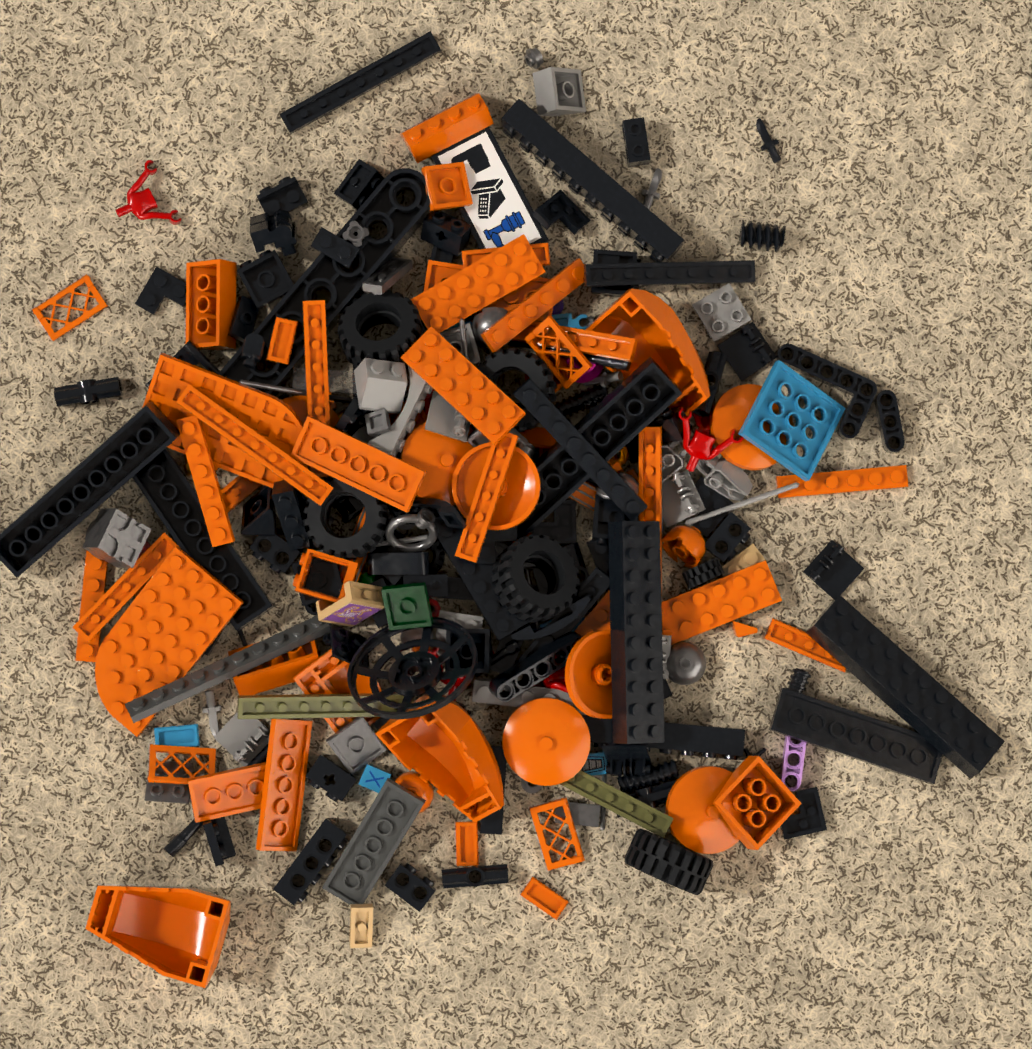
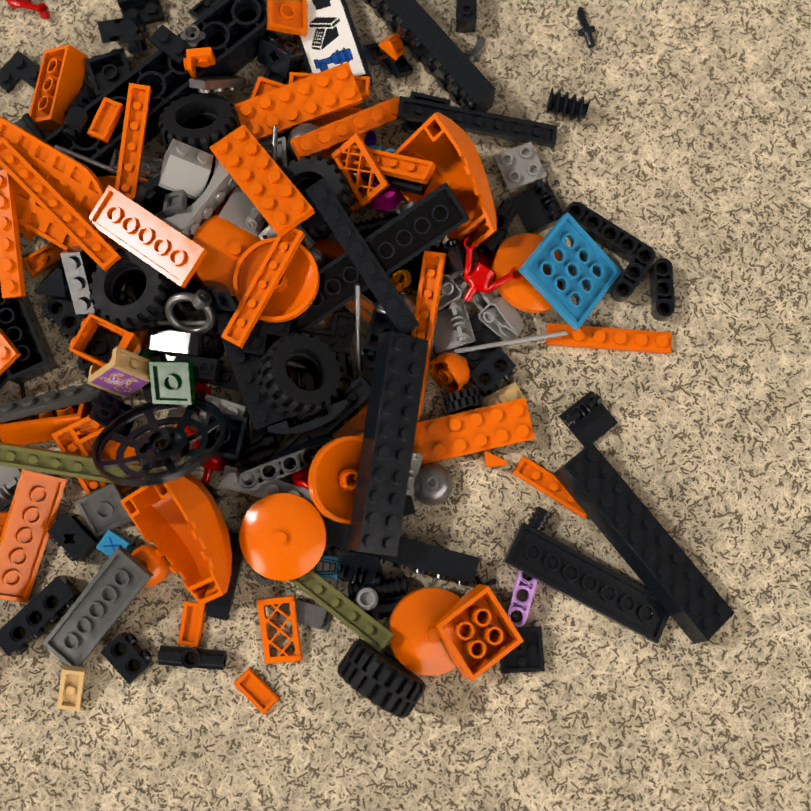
camera: 15 degrees right, 5 degrees down
(371, 259) = (198, 57): none -> orange bracket
(564, 199) = (393, 46): none -> orange slope
(585, 524) = (358, 329): none -> flat silver axle
(640, 788) = (367, 598): none -> light grey plate

